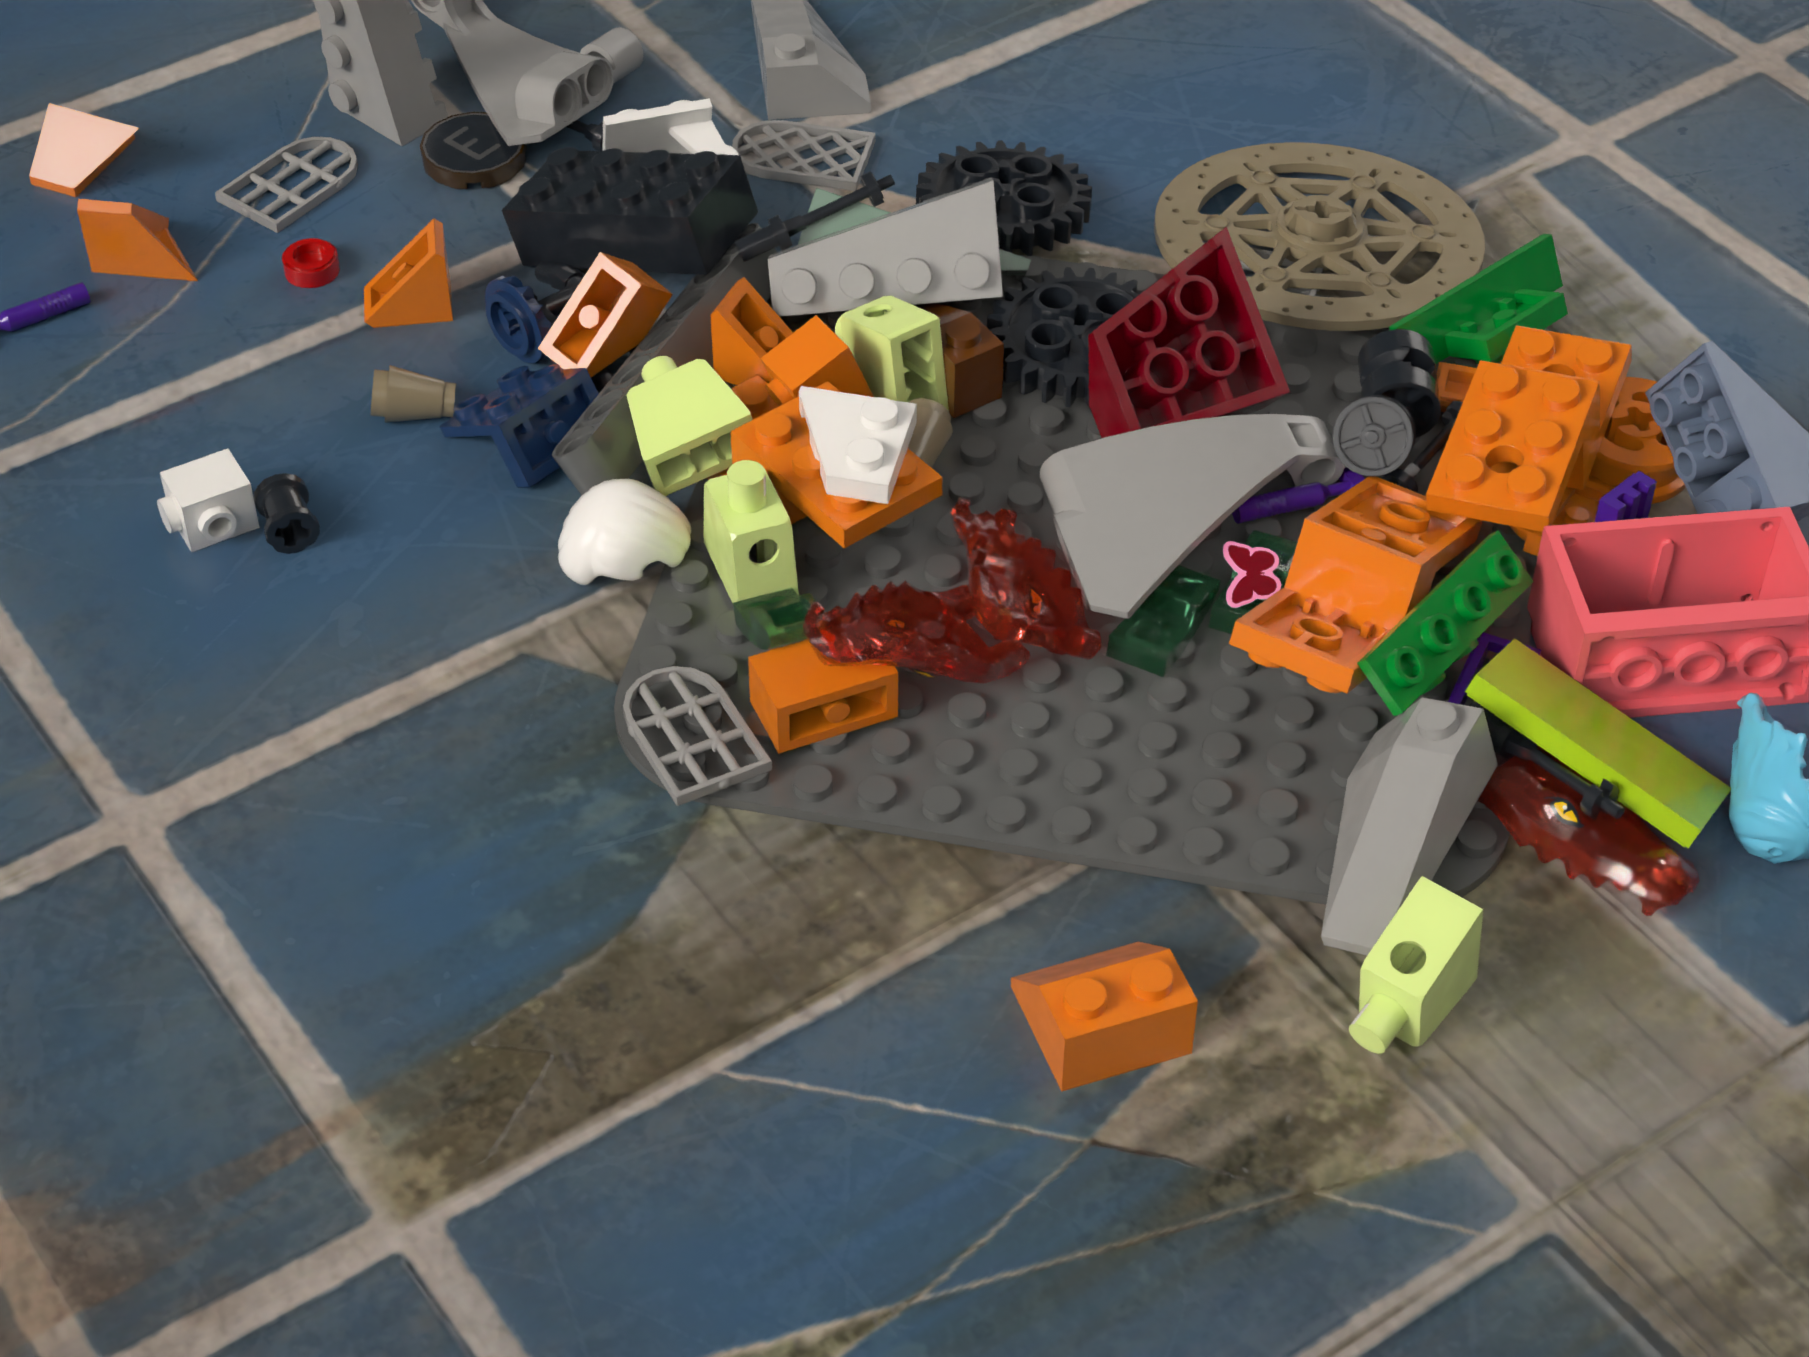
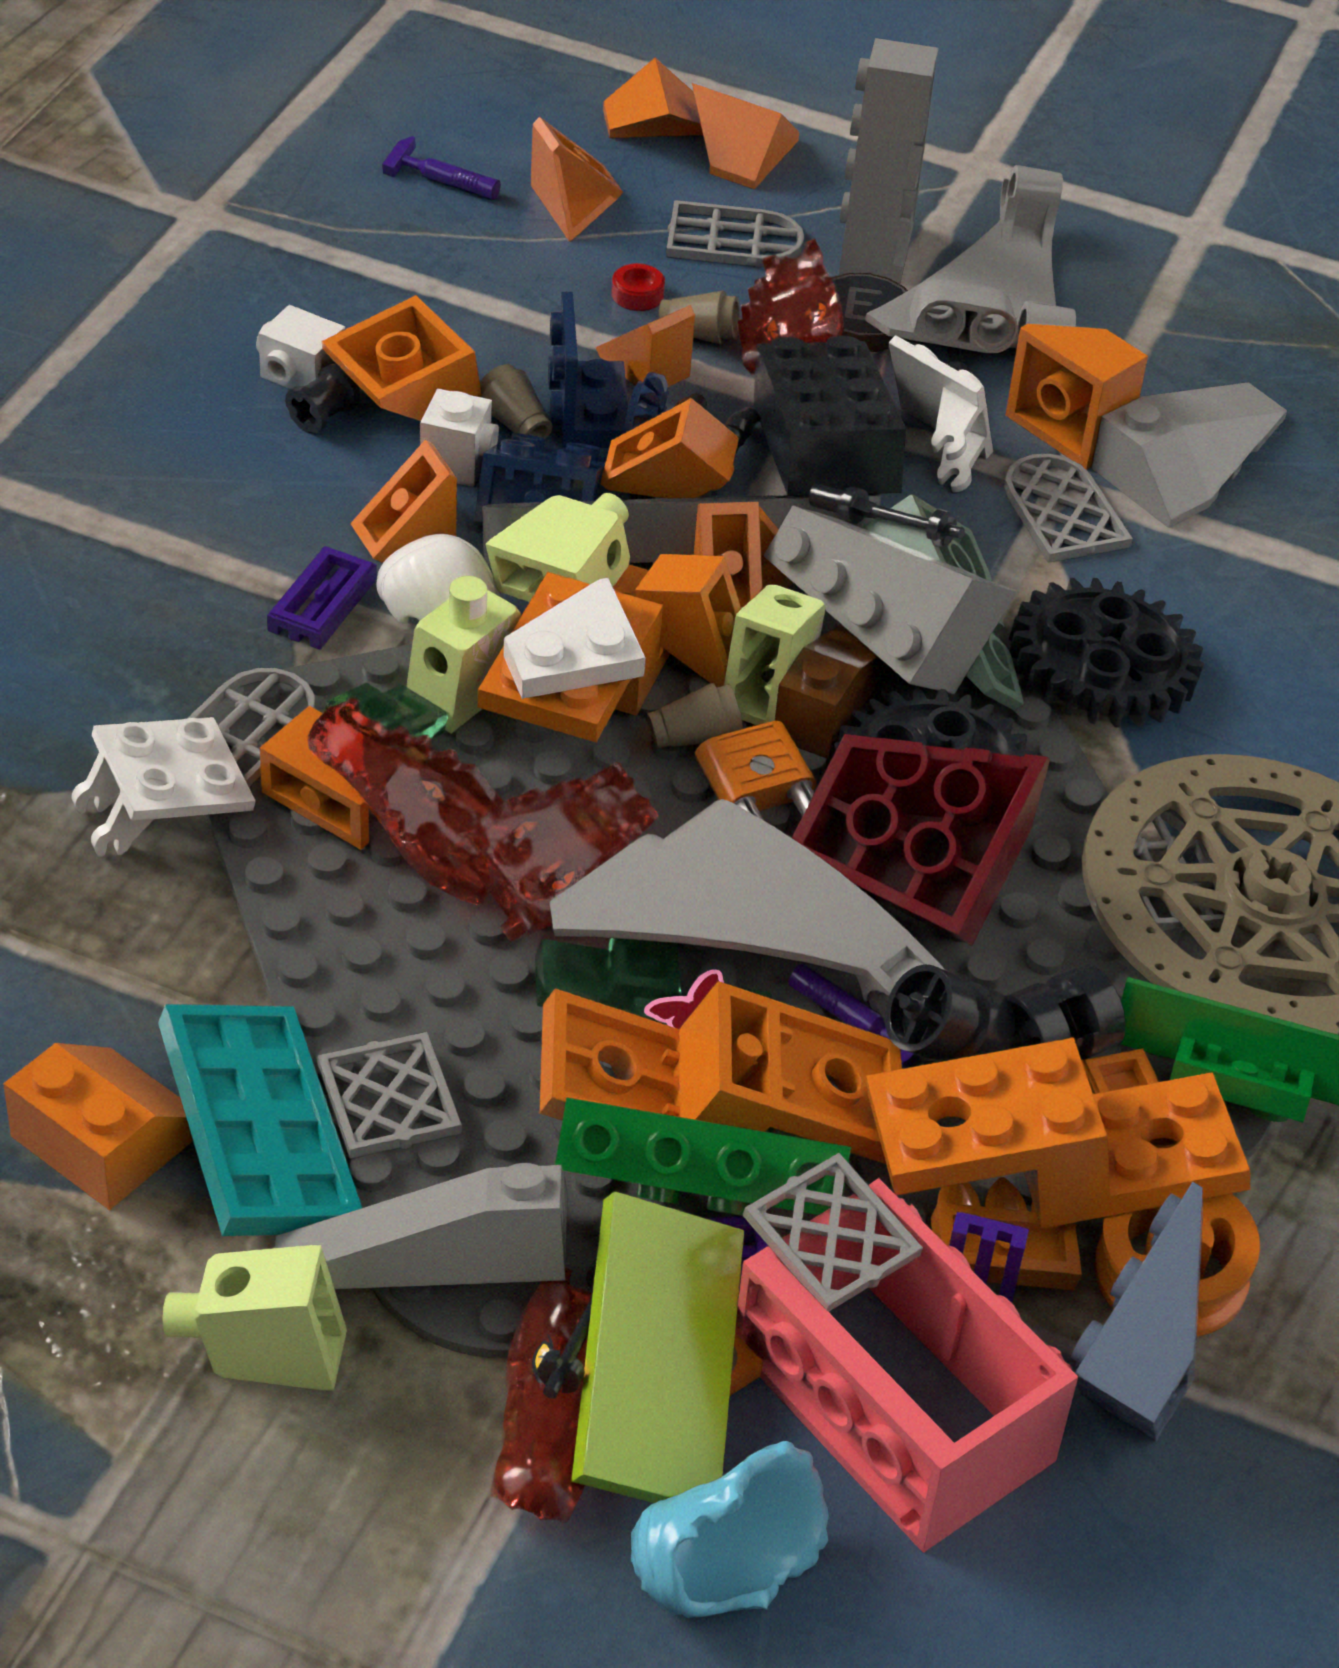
camera: 55 degrees right, 0 degrees up
(185, 111) = (742, 137): none -> orange slope
(313, 423) = (405, 358): none -> orange slope
(393, 235) = (714, 315): none -> dark tan cone
(429, 446) = (460, 432): none -> white brick
(430, 334) = (590, 393): none -> dark blue bracket
(450, 178) = (790, 302): none -> clear red animal
(484, 509) = (410, 505): none -> orange slope
(563, 652) = (332, 599): none -> dark purple tile
(720, 58) = (1070, 380): none -> orange slope
(730, 788) = (160, 774): none -> white plate
(1003, 435) = (757, 768): none -> orange piece
(1182, 898) = (257, 1117): none -> teal plate
(1202, 841) = (375, 1054): none -> light grey window
(1587, 541) = (869, 1203): none -> light grey window

